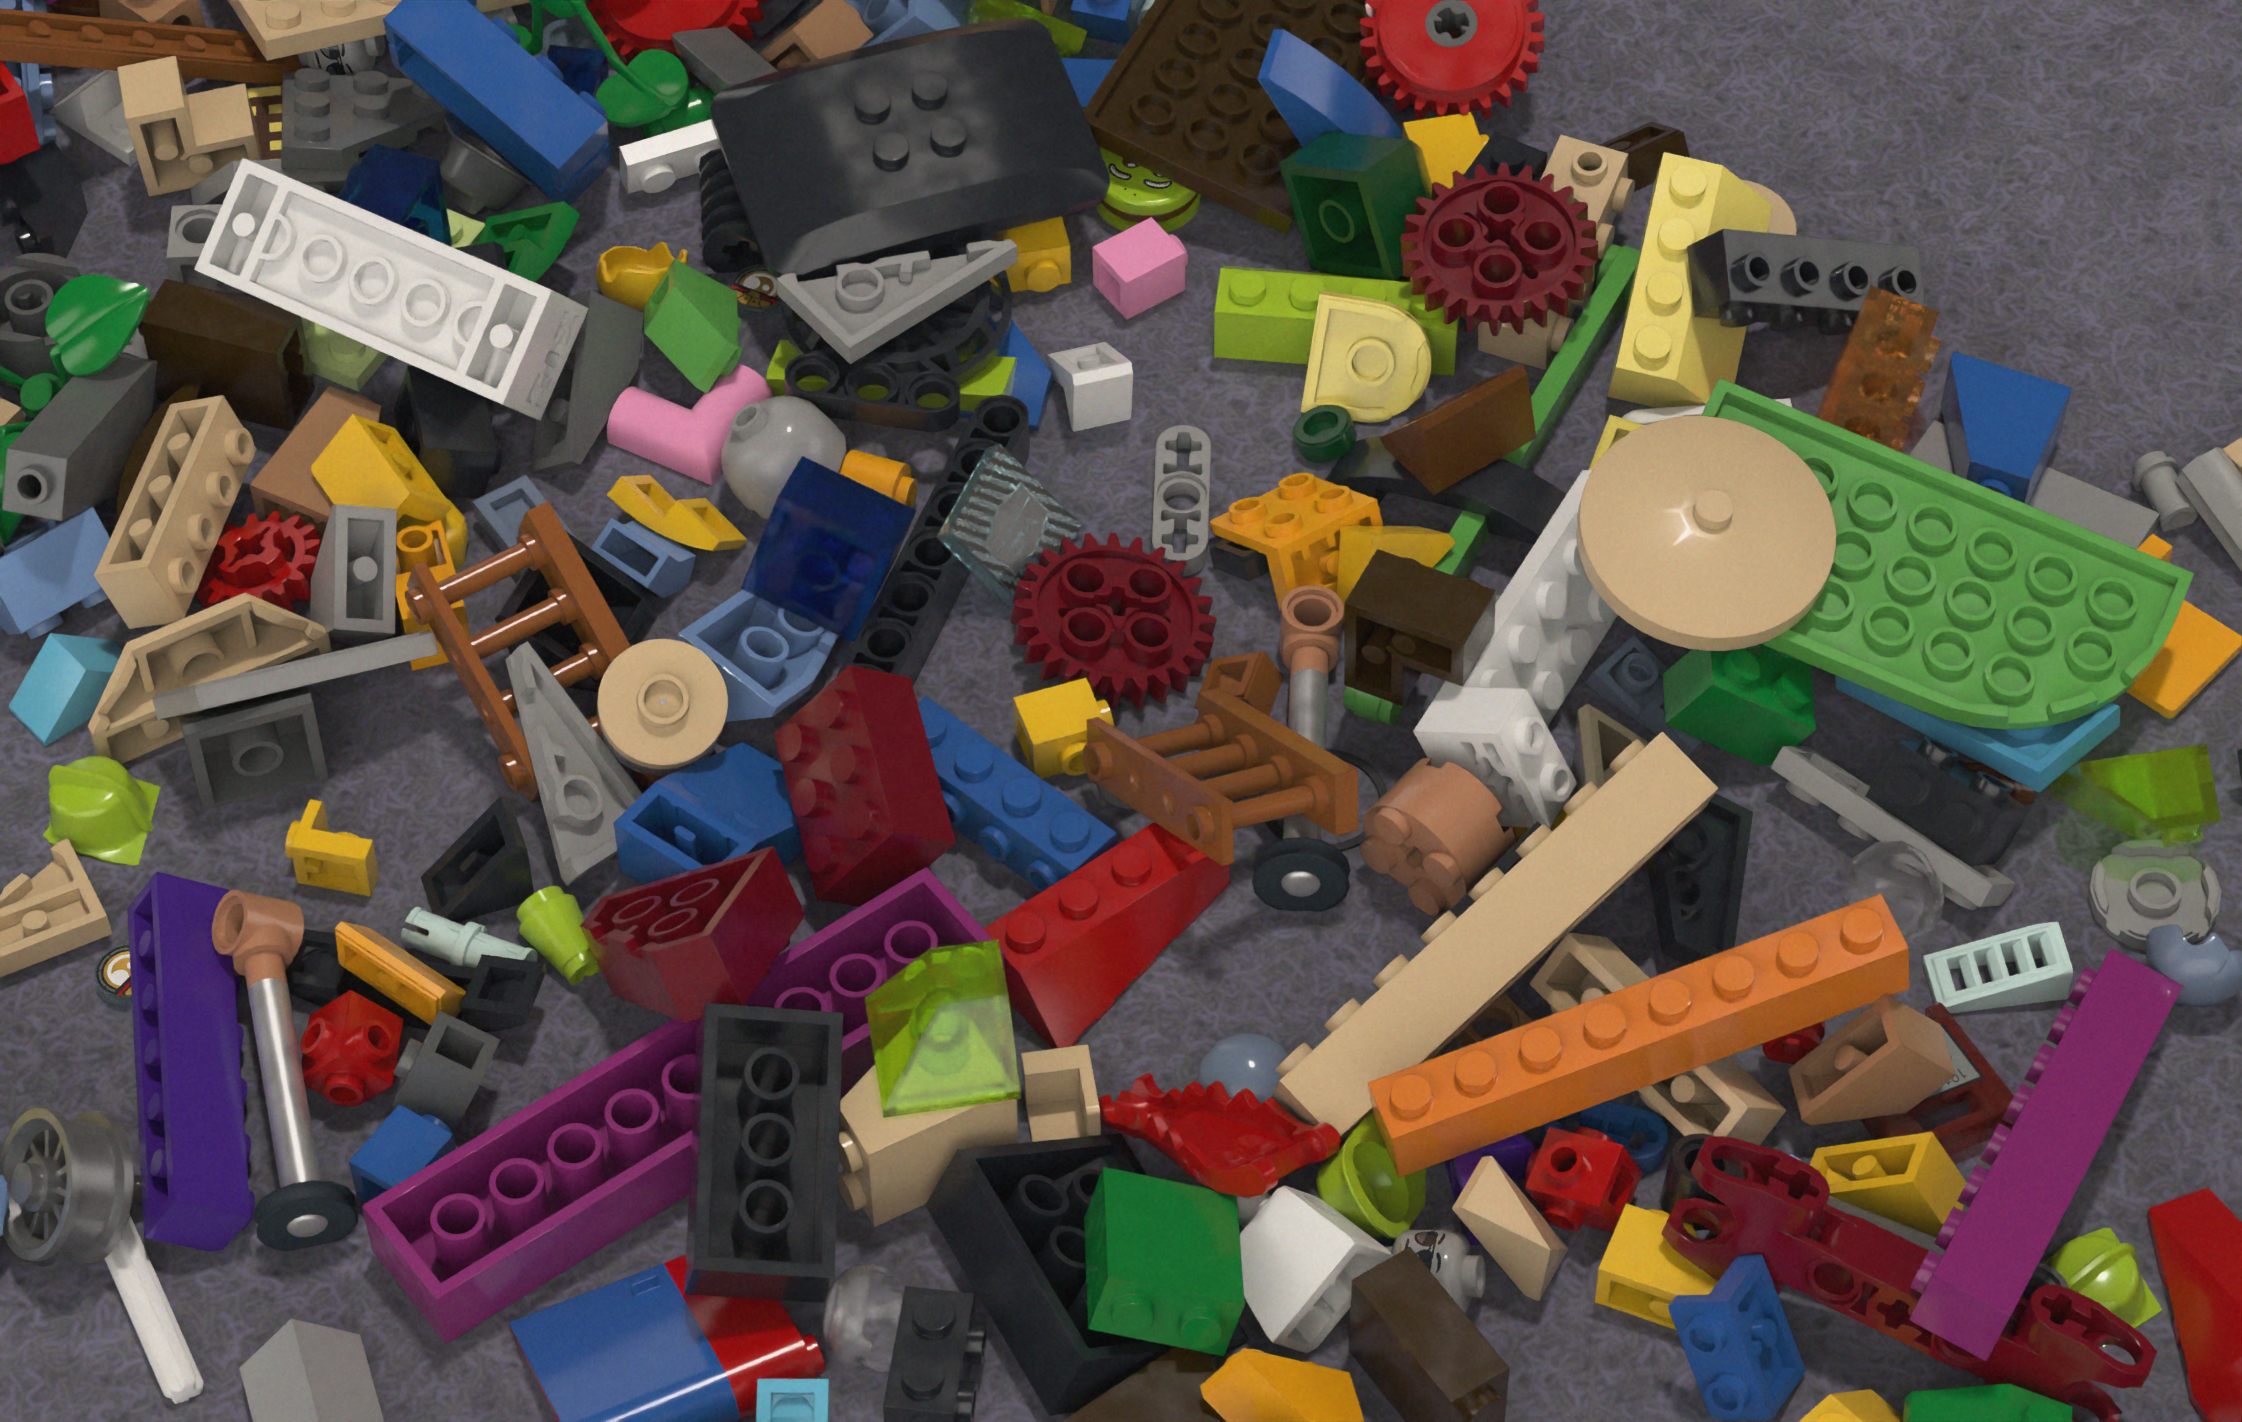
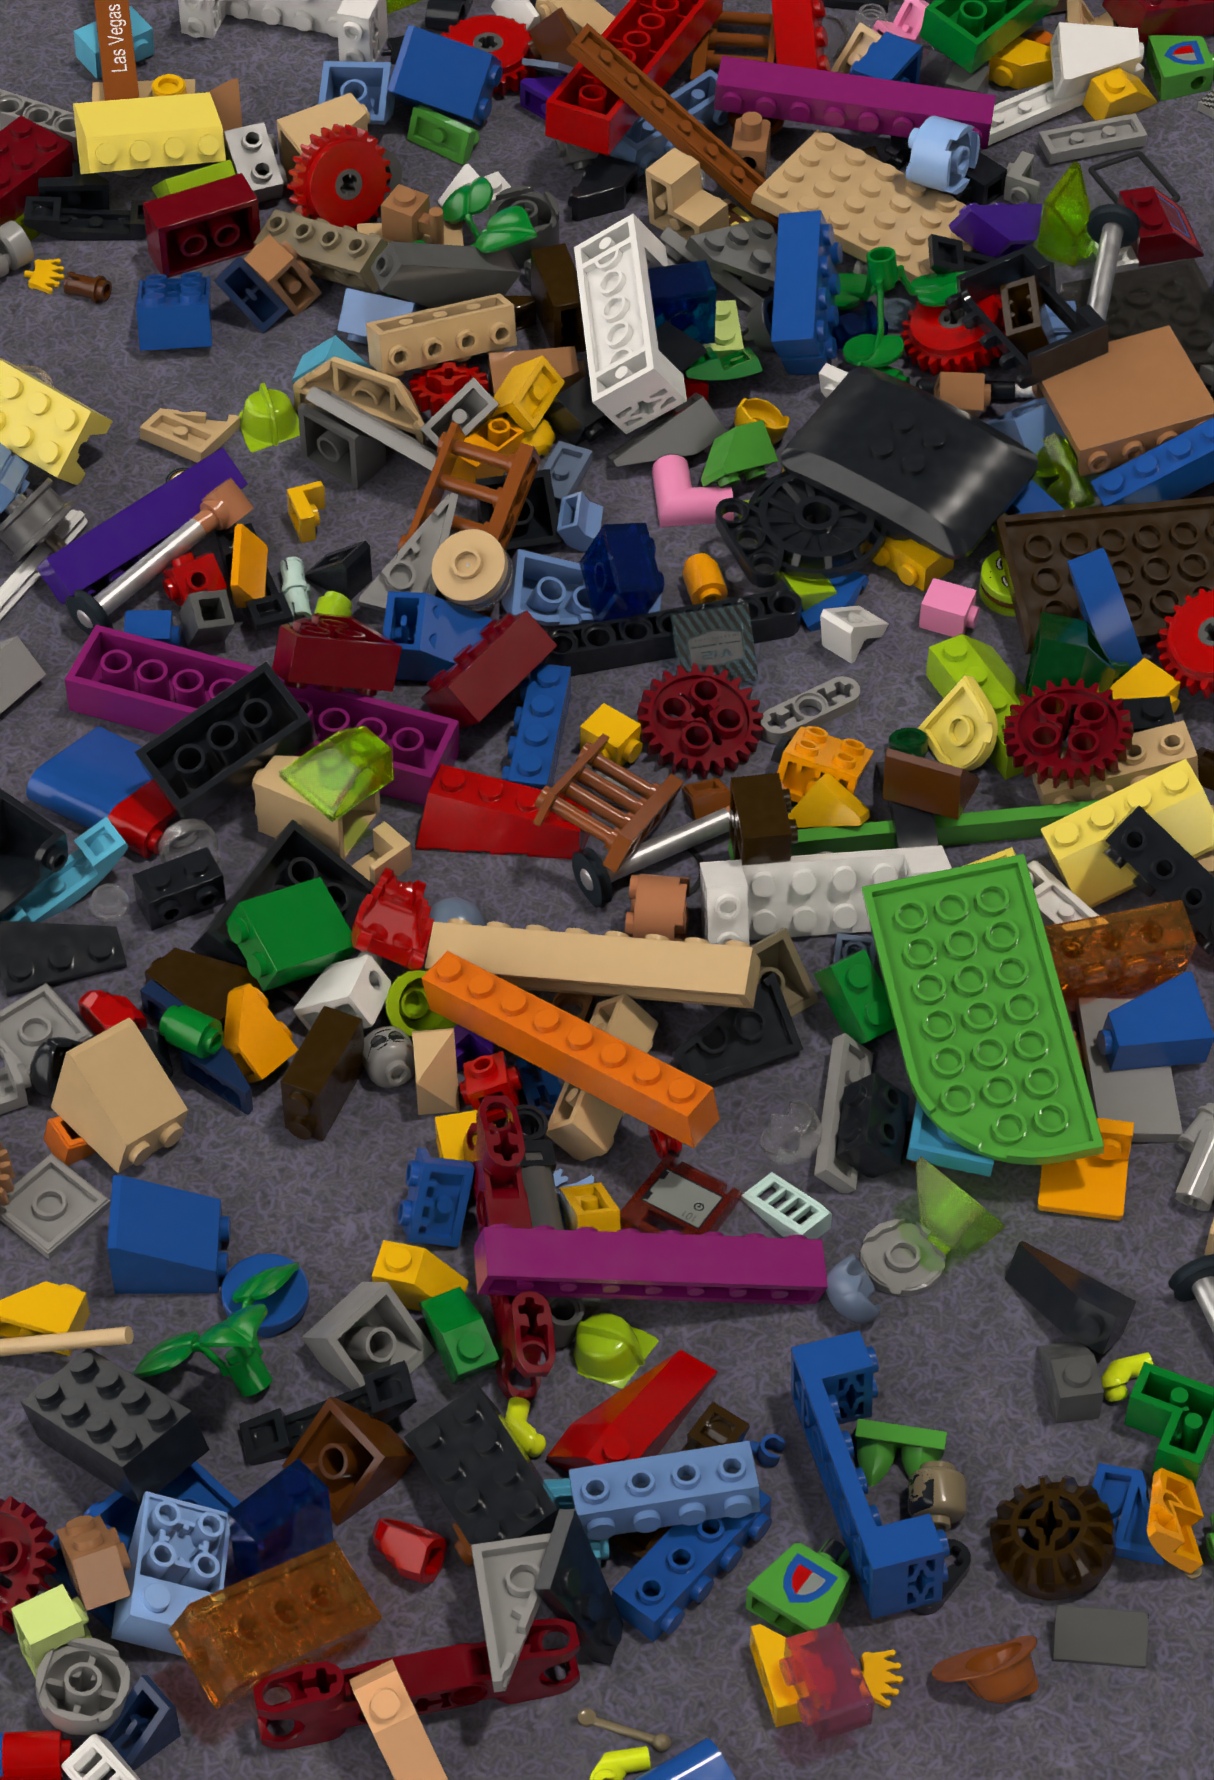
camera: 55 degrees right, 0 degrees up
(684, 521) = (615, 505): yellow slope -> none
(719, 57) = (917, 364): dark grey slope -> none
(768, 443) = (684, 529): light grey cylinder -> none
(884, 298) = (798, 506): light grey wing -> none
(1705, 533) = (914, 904): tan dish -> none
(1872, 1066) = (655, 1171): medium nougat slope -> none

